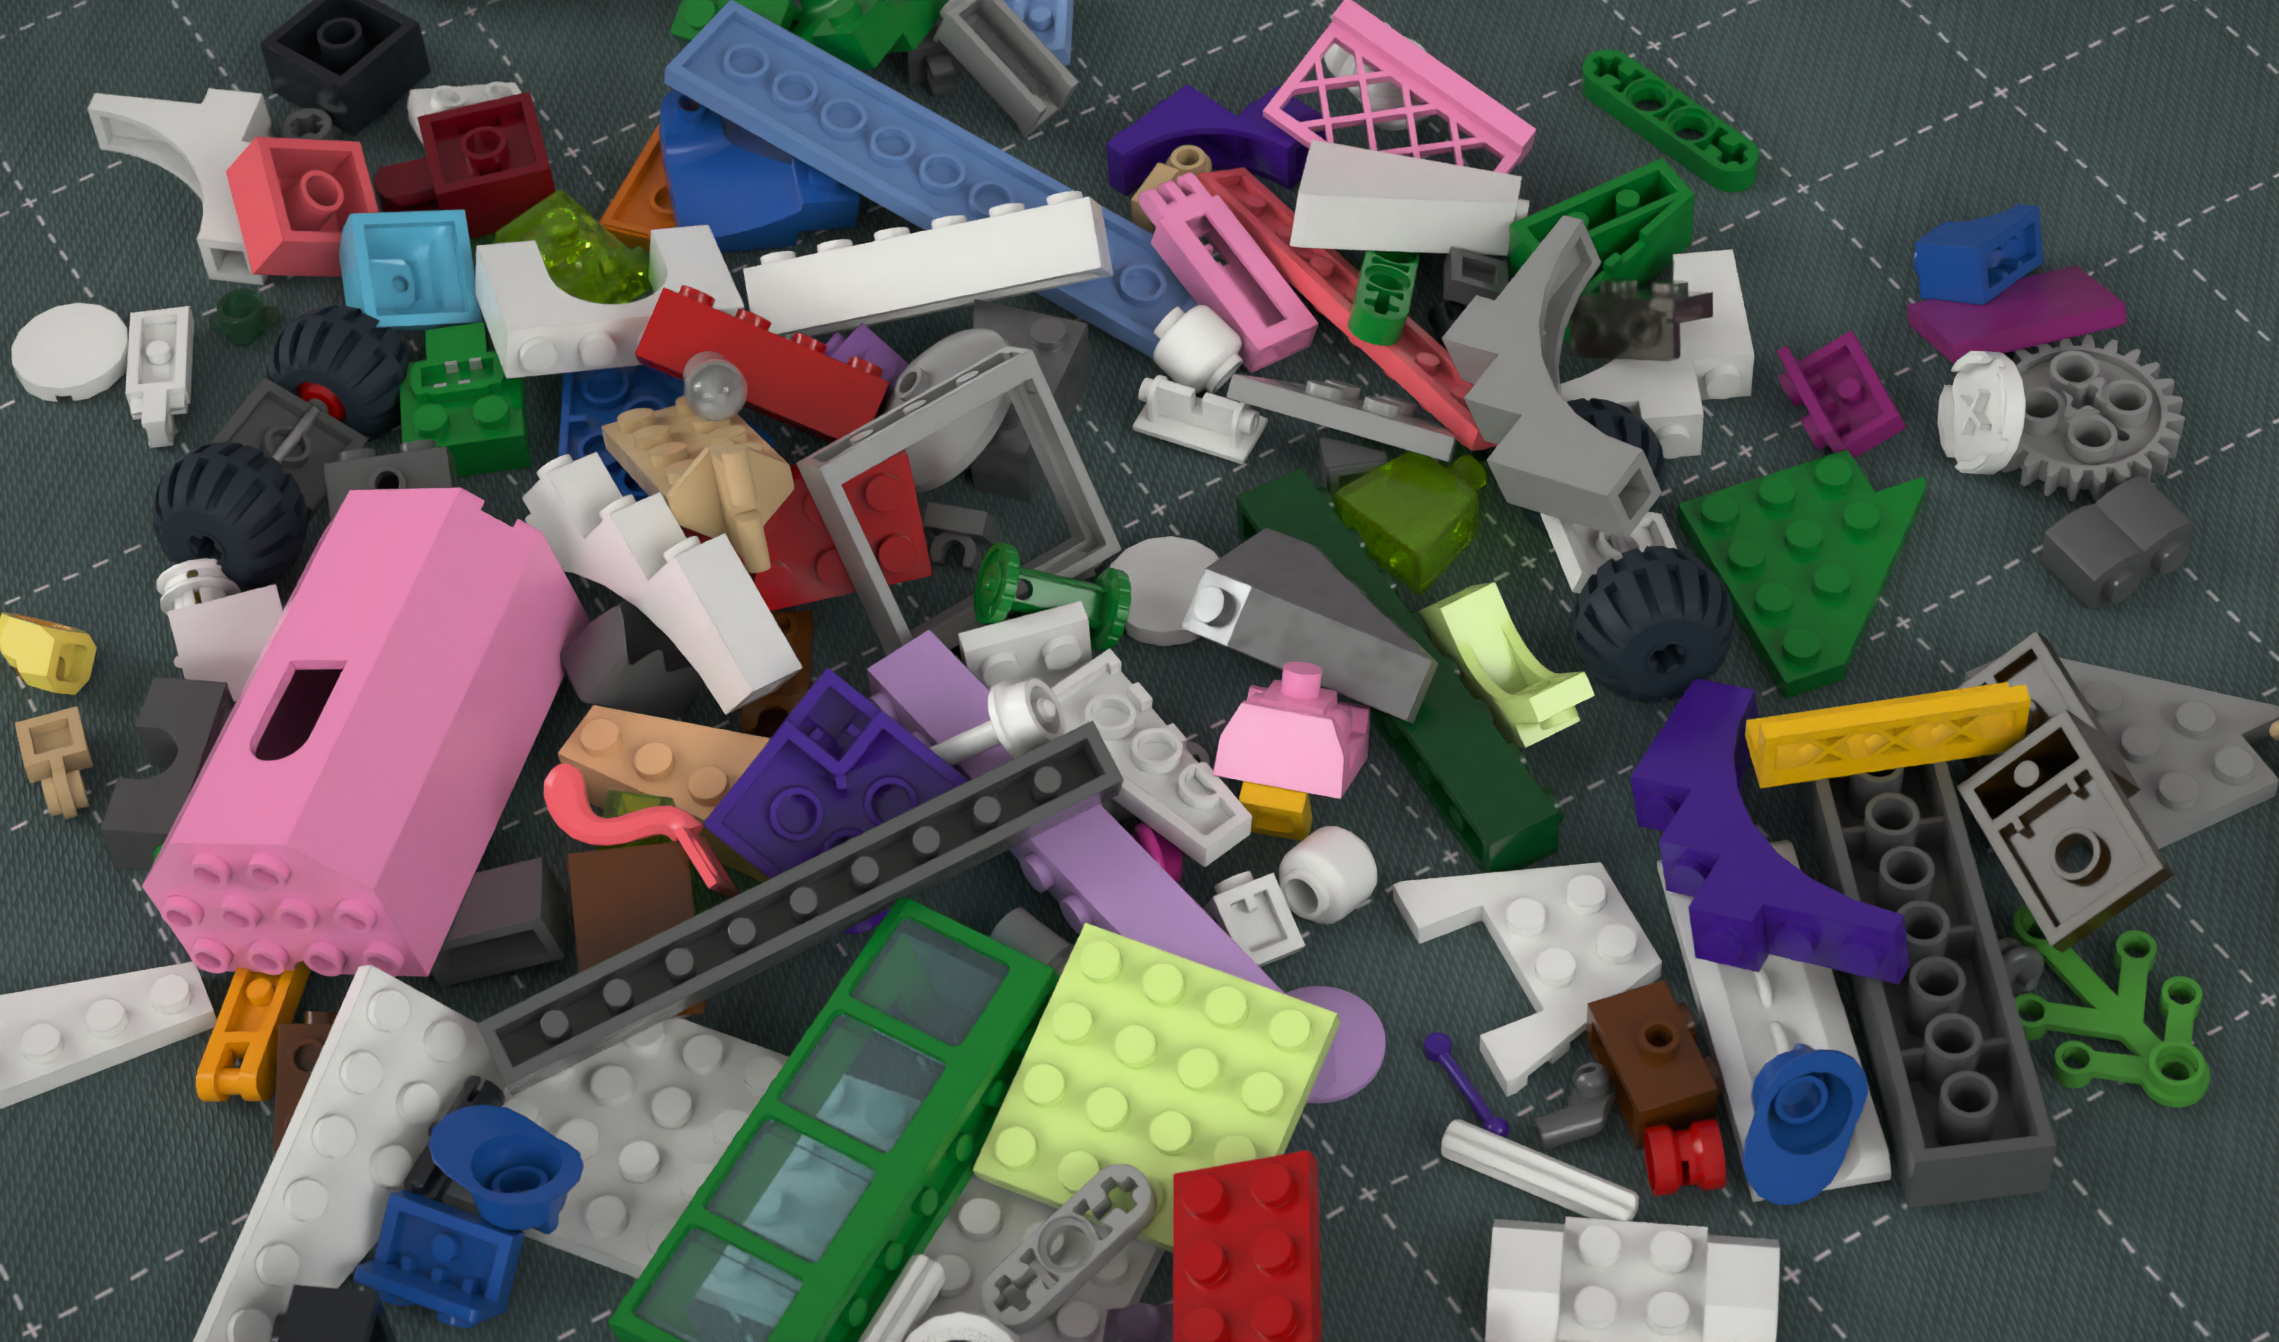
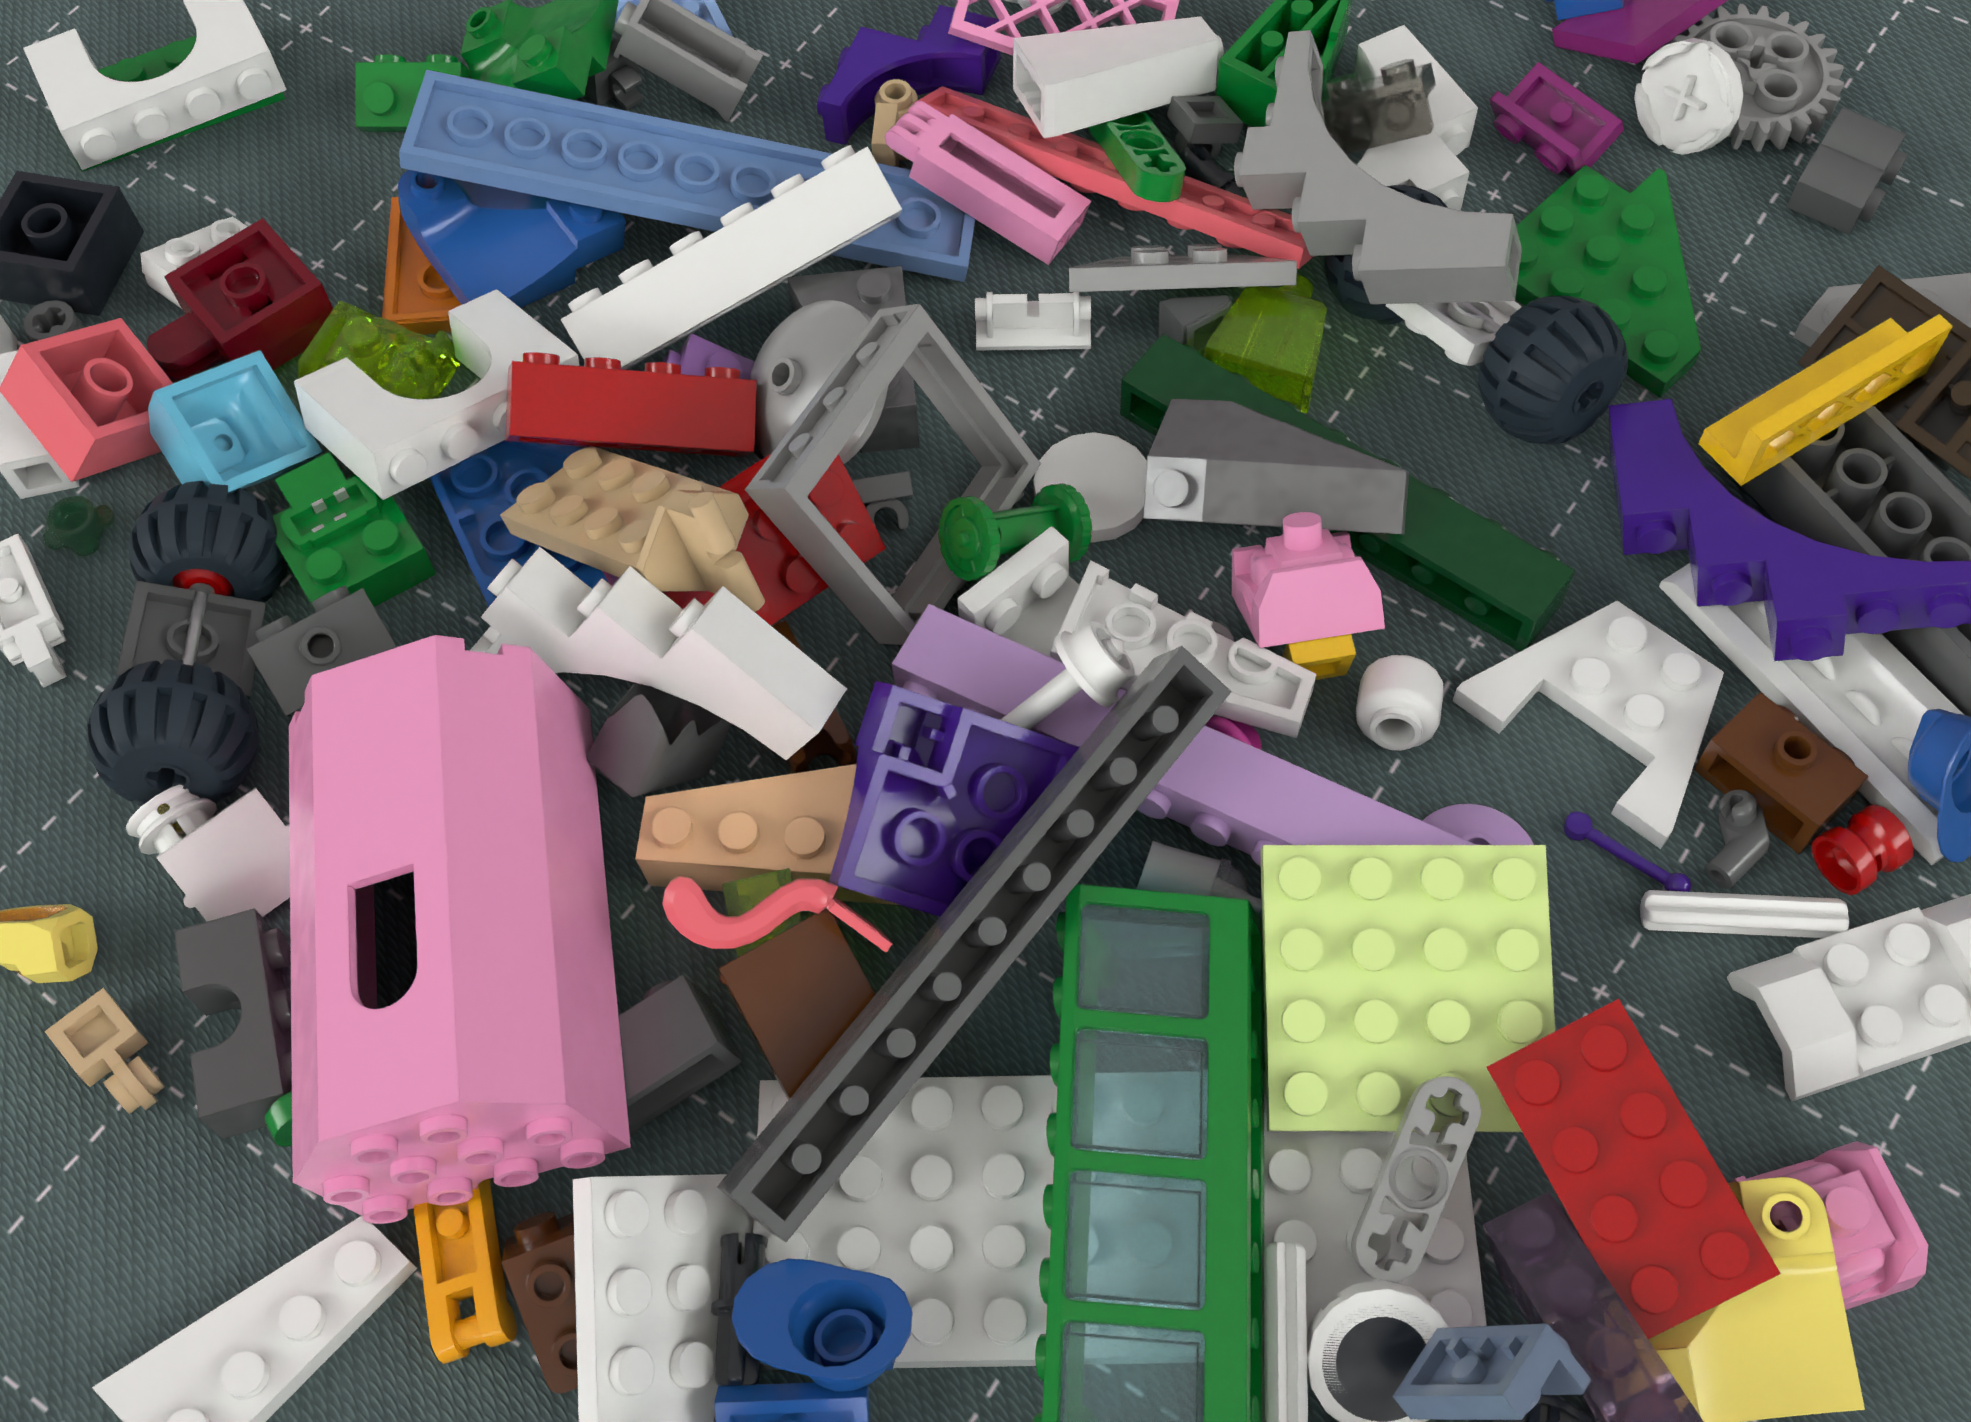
camera: 25 degrees left, 10 degrees up
(713, 387) = (609, 441): clear piece -> none
(1197, 348) = (1002, 257): white head -> none
(1256, 917) = (1360, 762): white bracket -> none
(1499, 667) = (1476, 474): yellowish green arch -> none

